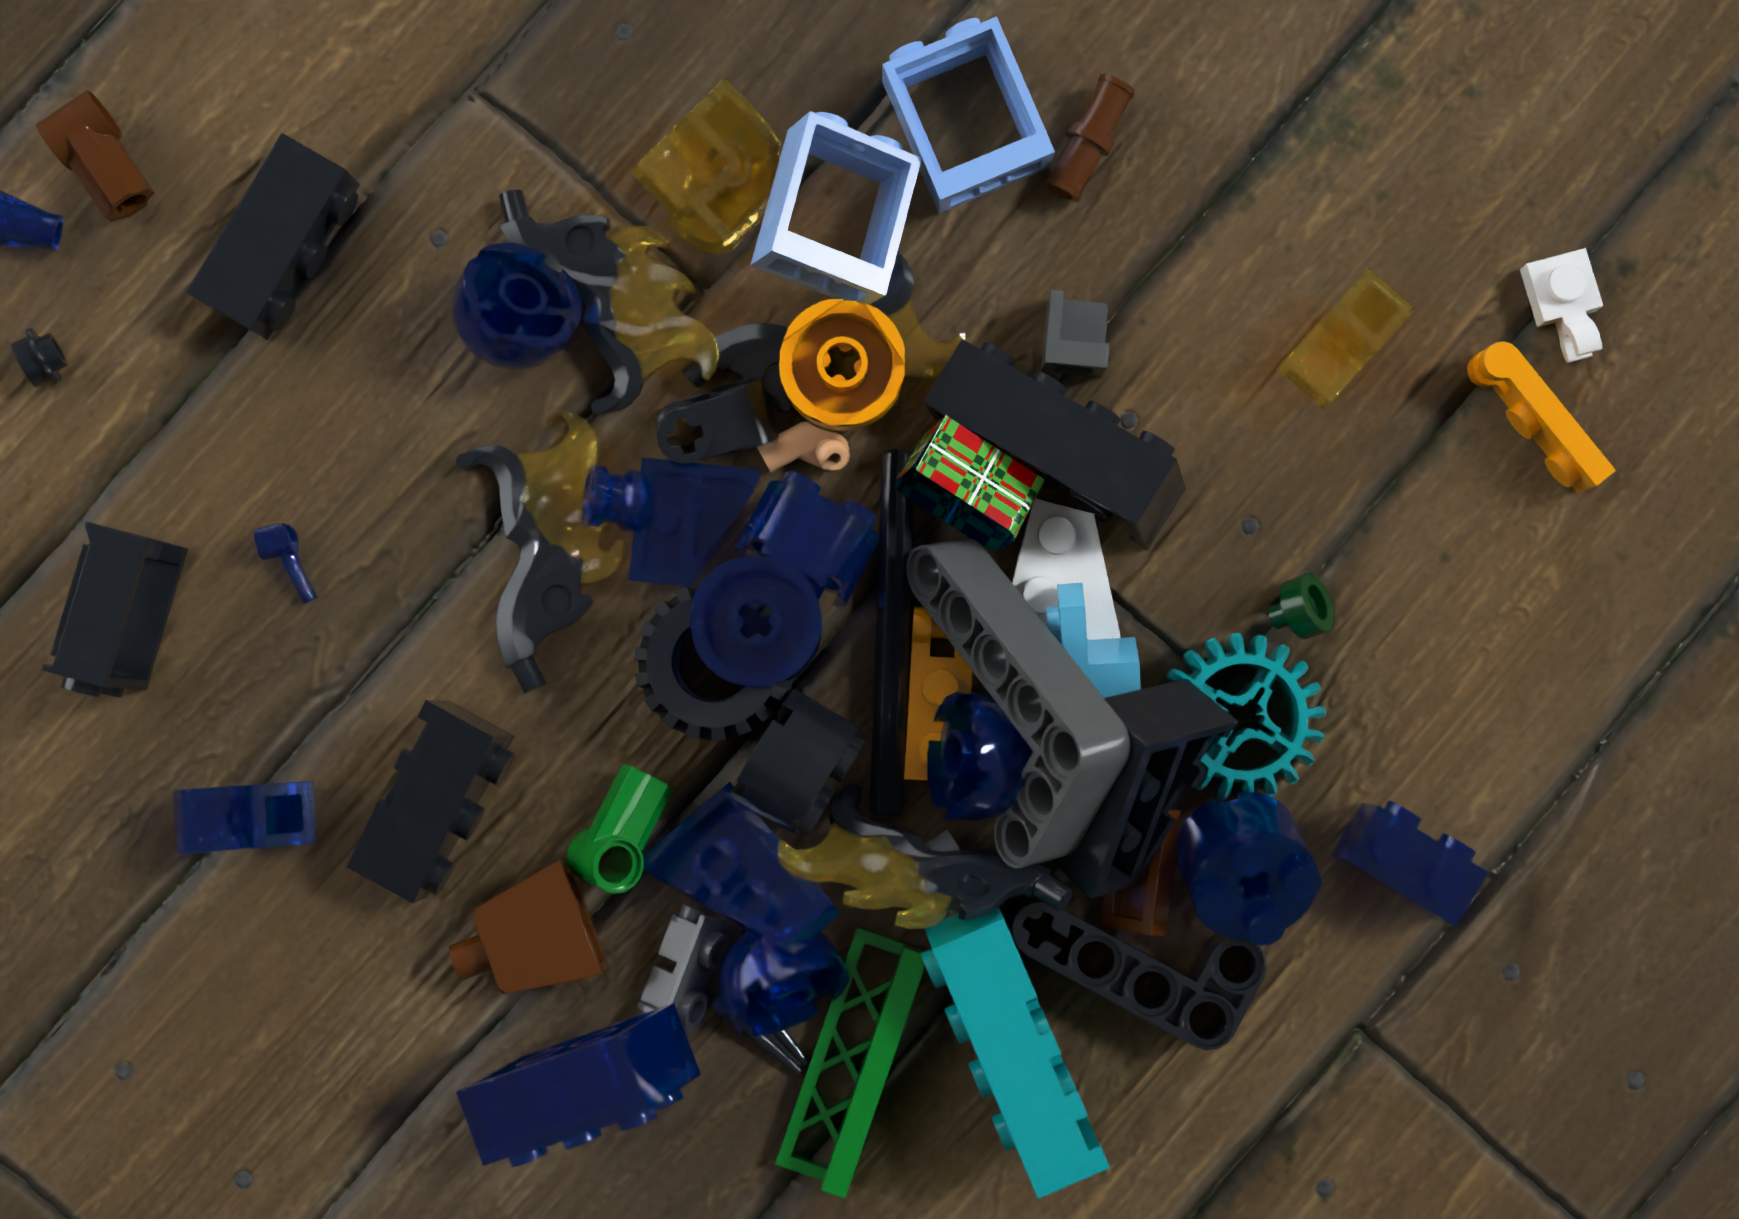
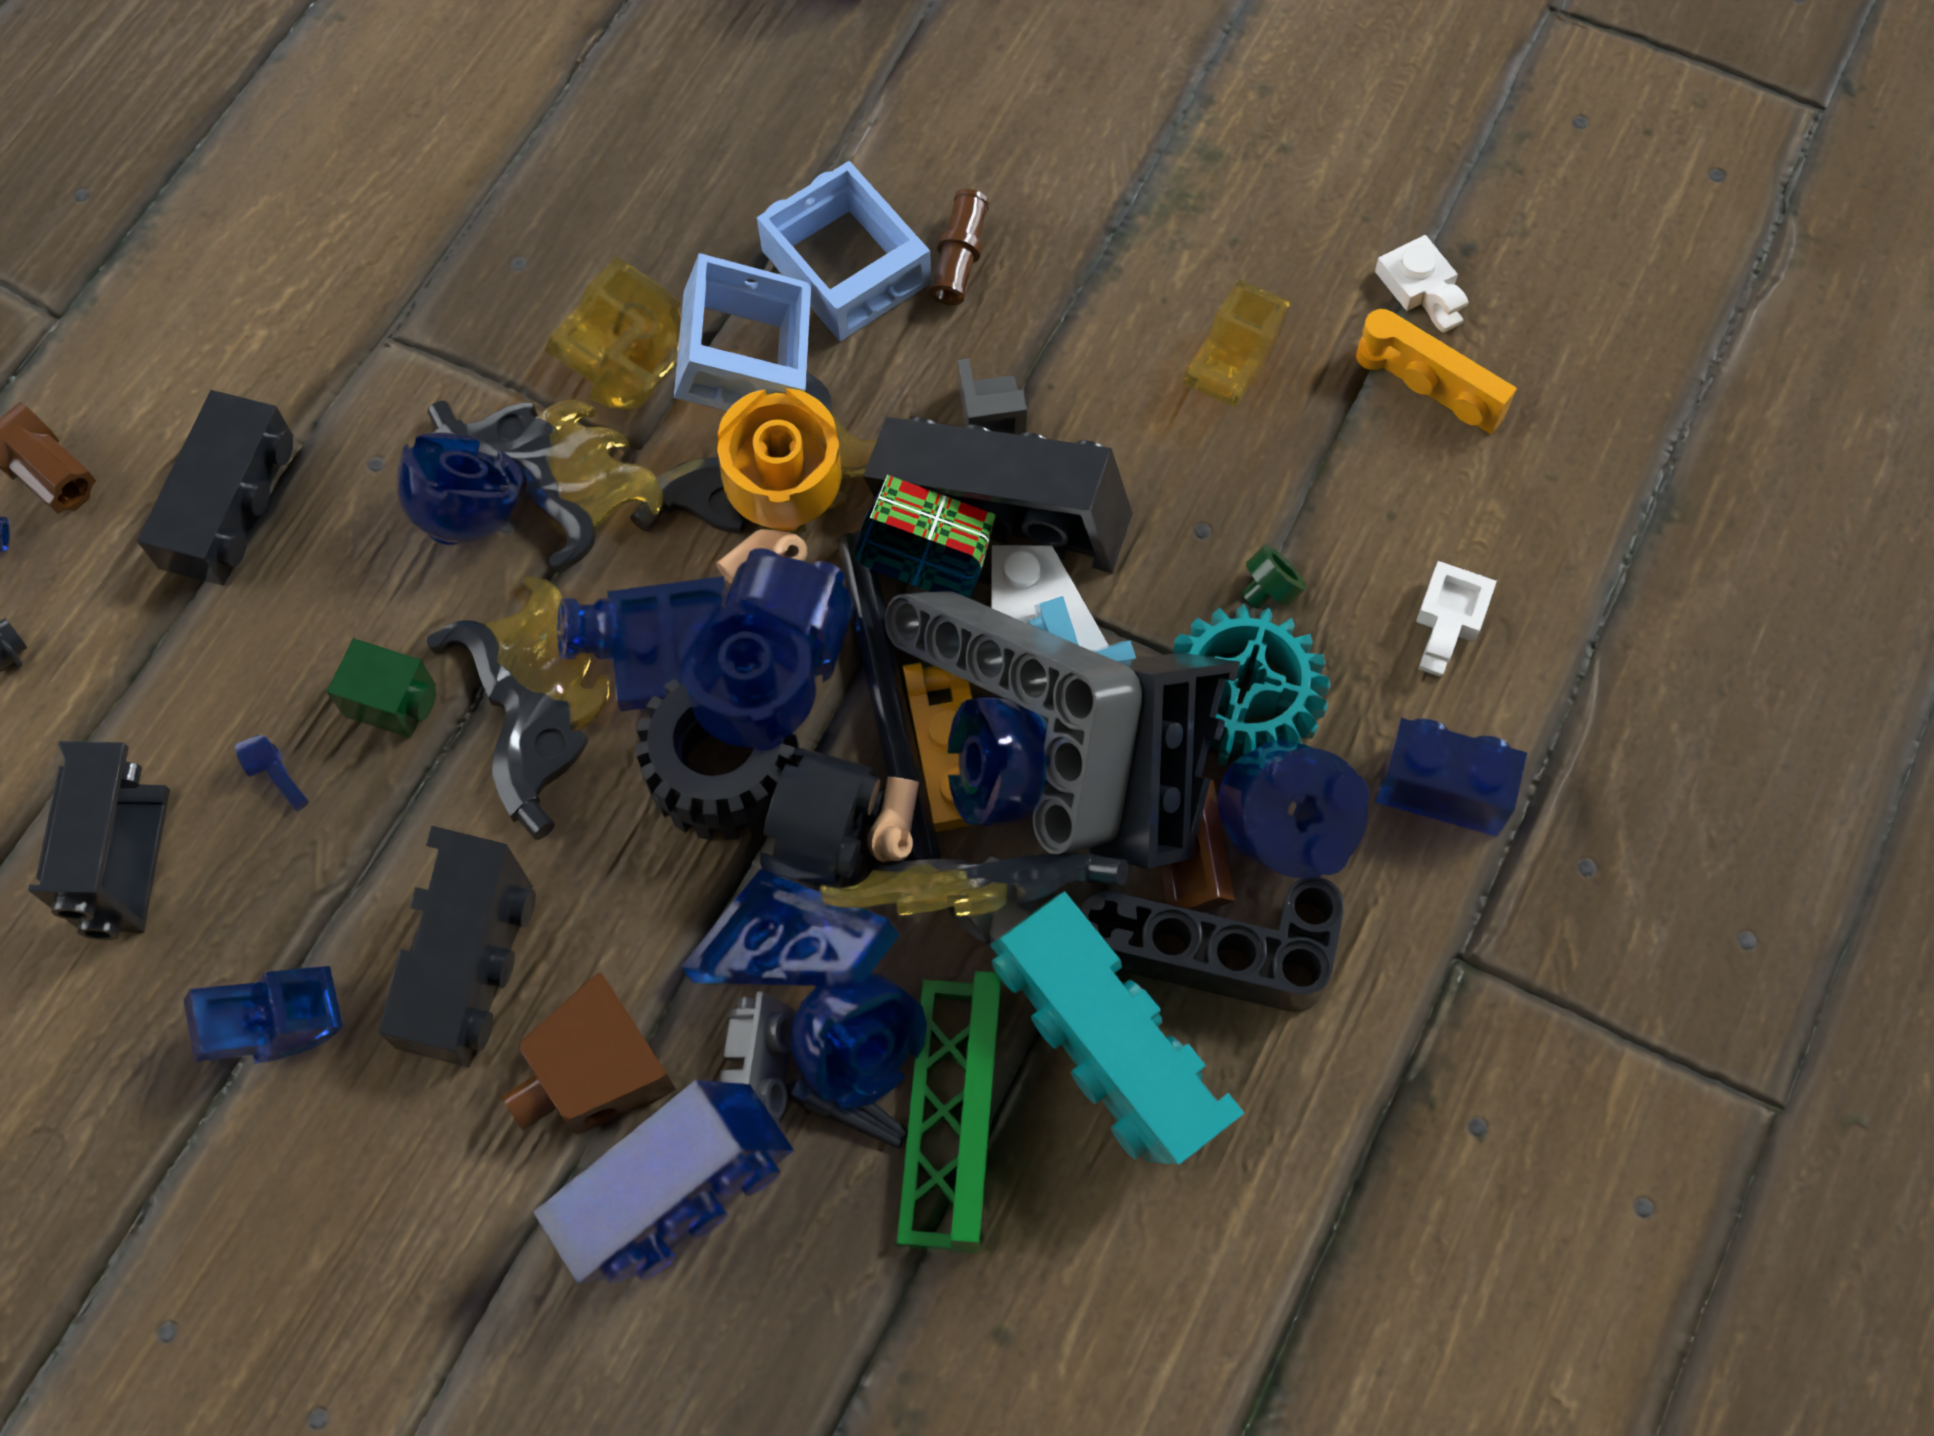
camera: 20 degrees left, 20 degrees down
(406, 506) = (382, 688): none -> dark green brick
(622, 825) = (657, 934): green piece -> none
(730, 419) = (681, 538): black piece -> none
(858, 790) = (890, 834): none -> light nougat arm
(1473, 684) = (1454, 609): none -> white plate

